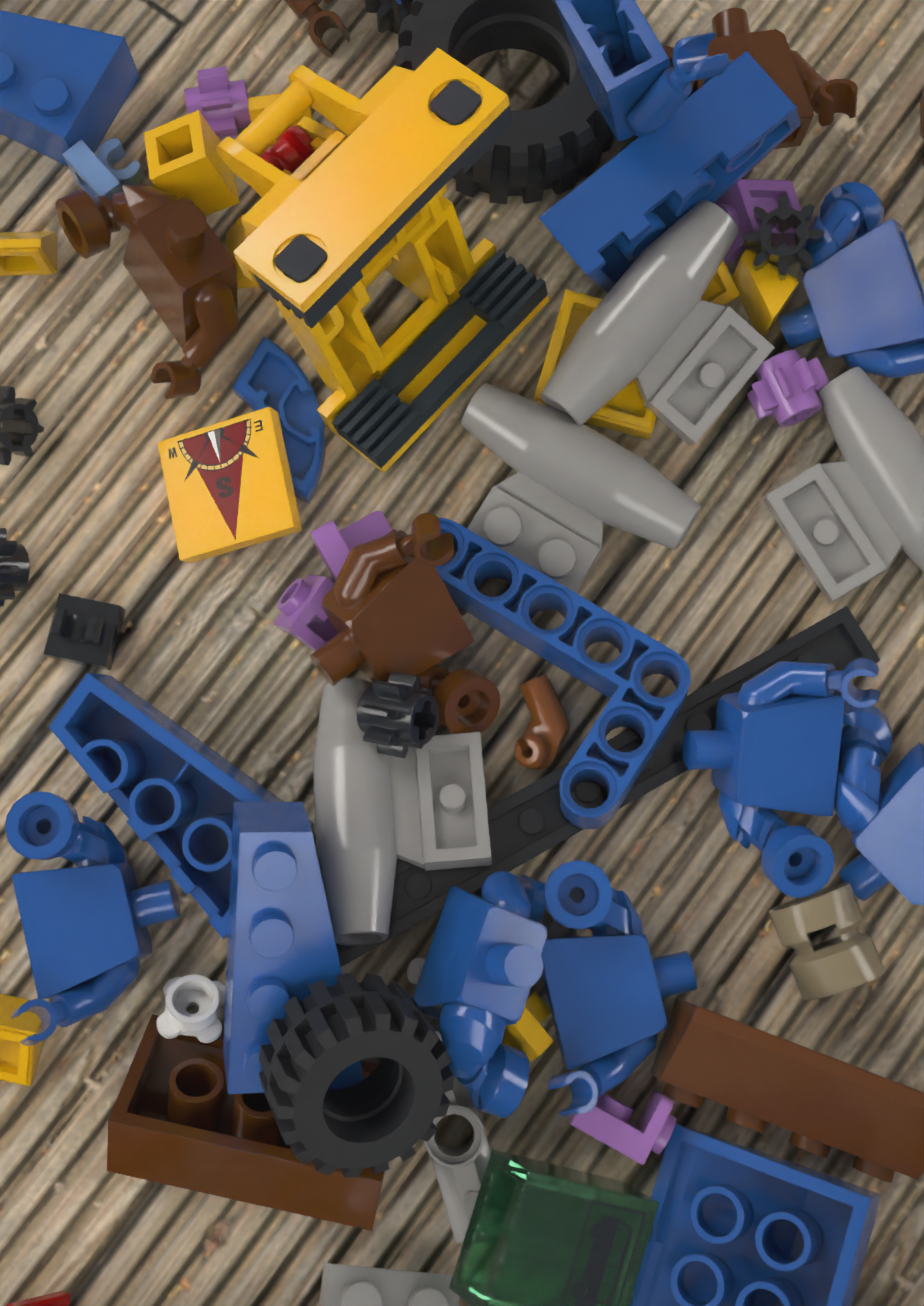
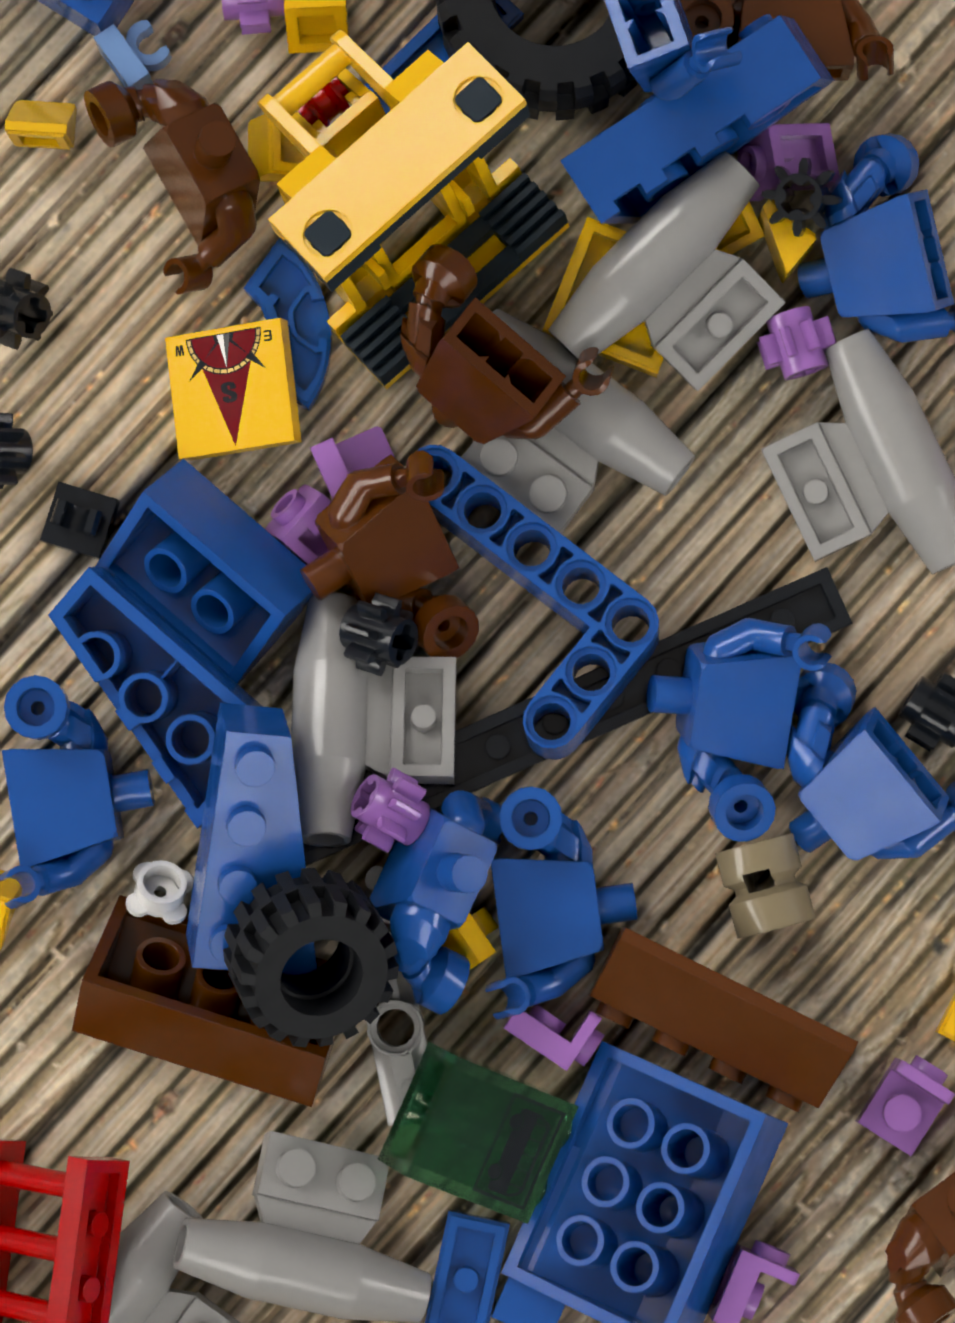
camera: 10 degrees right, 5 degrees up
(186, 163) = (222, 59): yellow brick -> none
(216, 667) = (208, 569): none -> blue slope
(427, 900) = (390, 810): none -> medium lavender gear
(478, 433) = (481, 369): none -> reddish brown torso
(546, 728) = (522, 658): dark orange arm -> none

